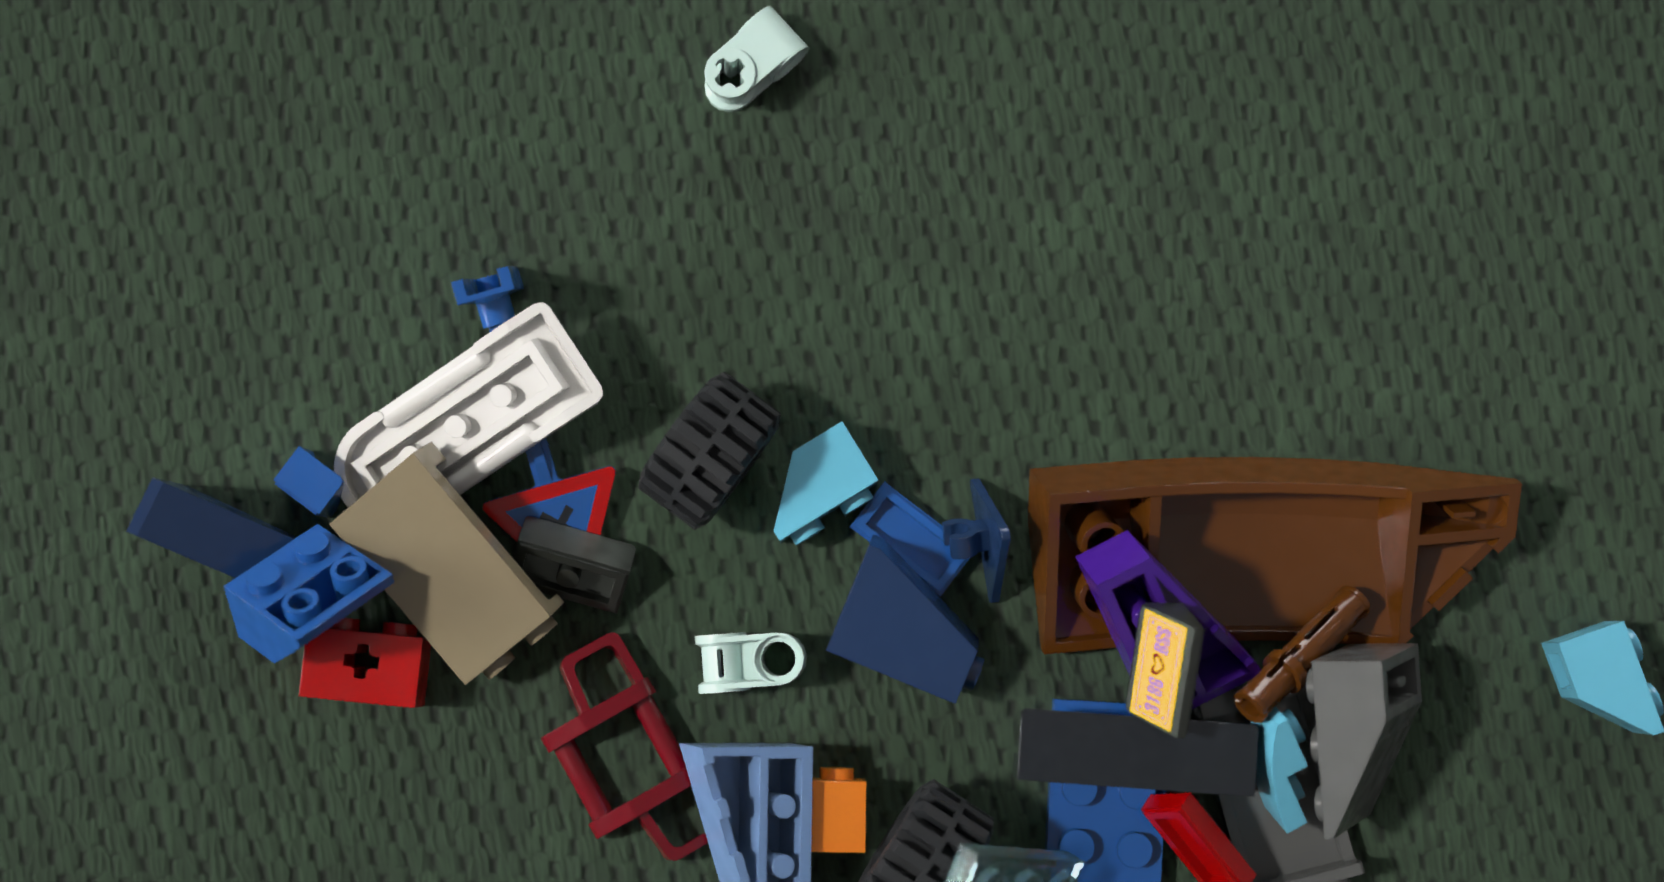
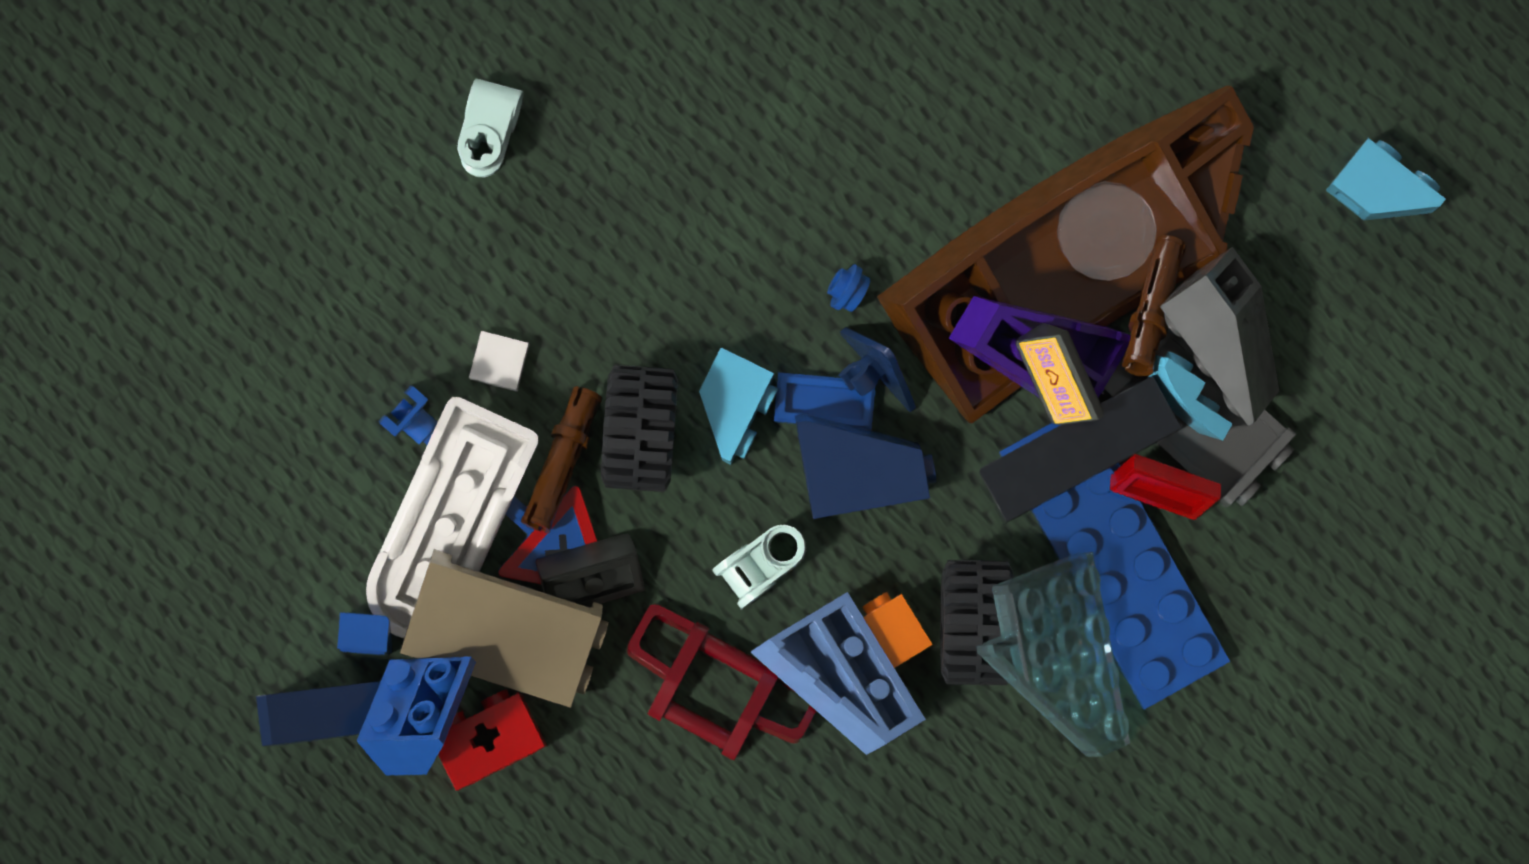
camera: 25 degrees left, 0 degrees up
(618, 297) = (499, 361): none -> white tile
(627, 424) = (568, 442): none -> reddish brown pin
(1006, 442) = (848, 288): none -> blue plate
(1300, 548) = (1107, 231): none -> clear tile

